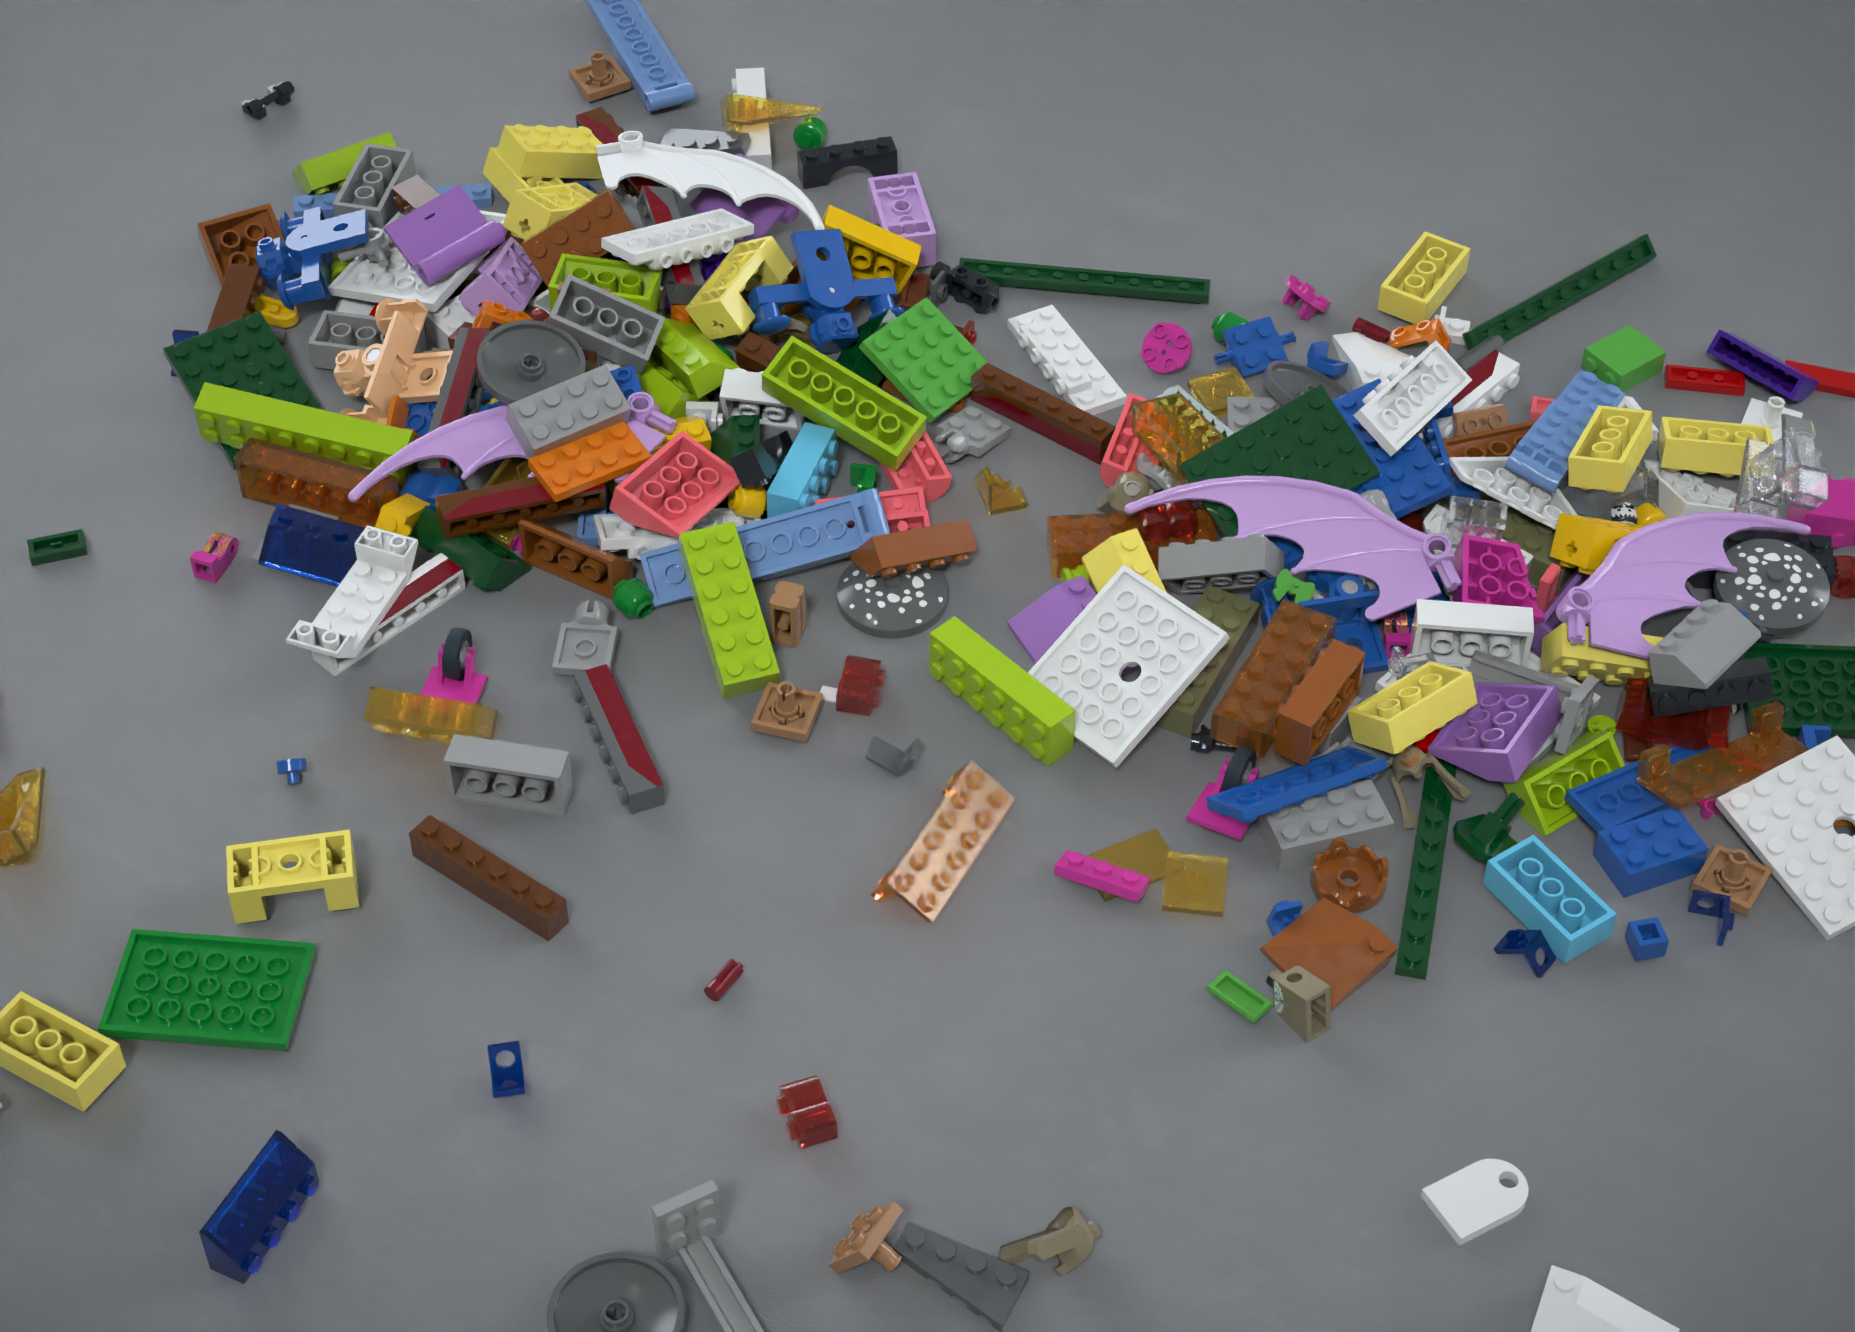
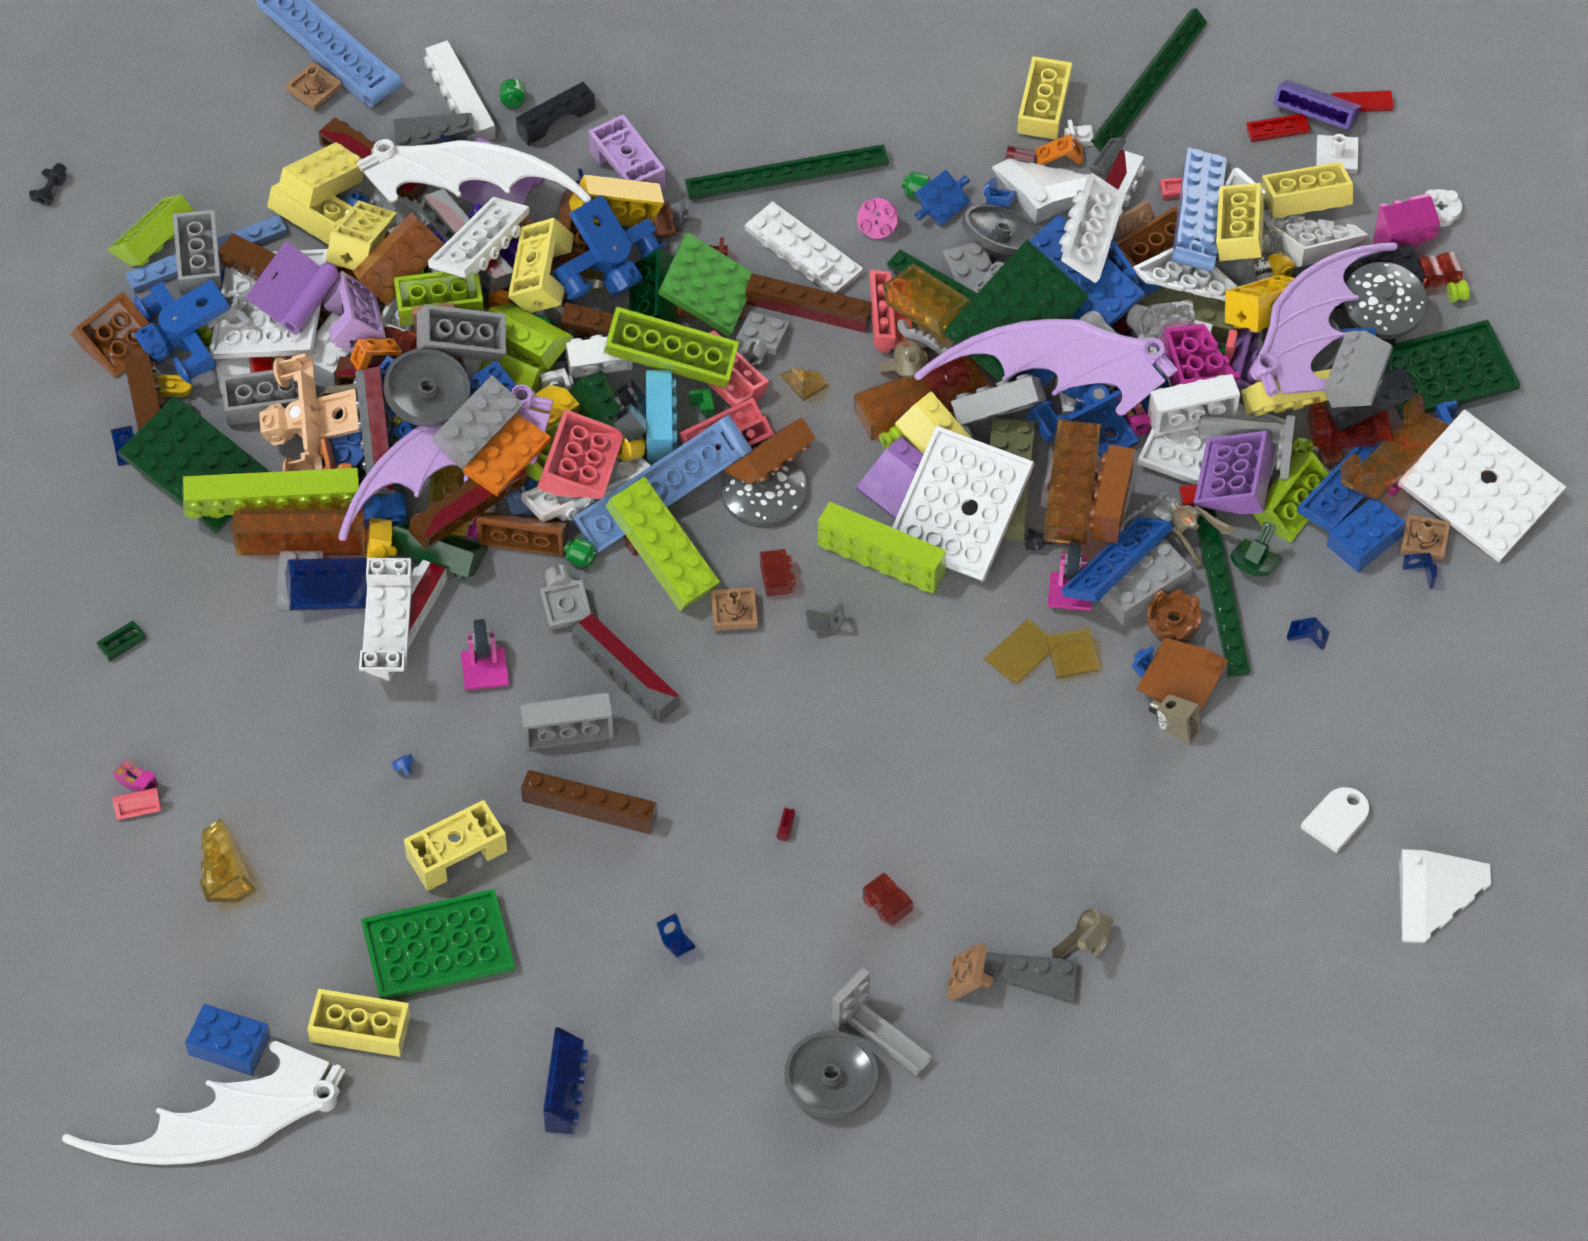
camera: 20 degrees left, 10 degrees up
(216, 555) = (248, 612): dark pink leg -> none
(428, 715) = (487, 694): clear yellow brick -> none
(751, 111) = (464, 93): clear yellow wedge -> none
(787, 614) = (702, 531): medium nougat brick -> none
(829, 693) = (756, 583): white window -> none
(947, 842) = (893, 674): clear orange bracket -> none
(969, 287) = (707, 204): black brick -> none
(1102, 876) = (1008, 667): dark pink plate -> none
(1213, 388) = (929, 242): clear yellow tile -> none
(1239, 996) = (1134, 726): bright green tile -> none
(1287, 583) = (1054, 404): bright green piece -> none
(1304, 291) = (958, 135): dark pink plate -> none
(1401, 665) = (1160, 443): clear bracket -> none
(1412, 707) = (1175, 476): light yellow brick -> none
(1549, 898) = (1312, 590): medium azure brick -> none
(1624, 358) = (1214, 127): bright green brick -> none
(1646, 939) = (1384, 600): blue plate -> none
(1782, 472) = (1367, 208): clear wedge -> none

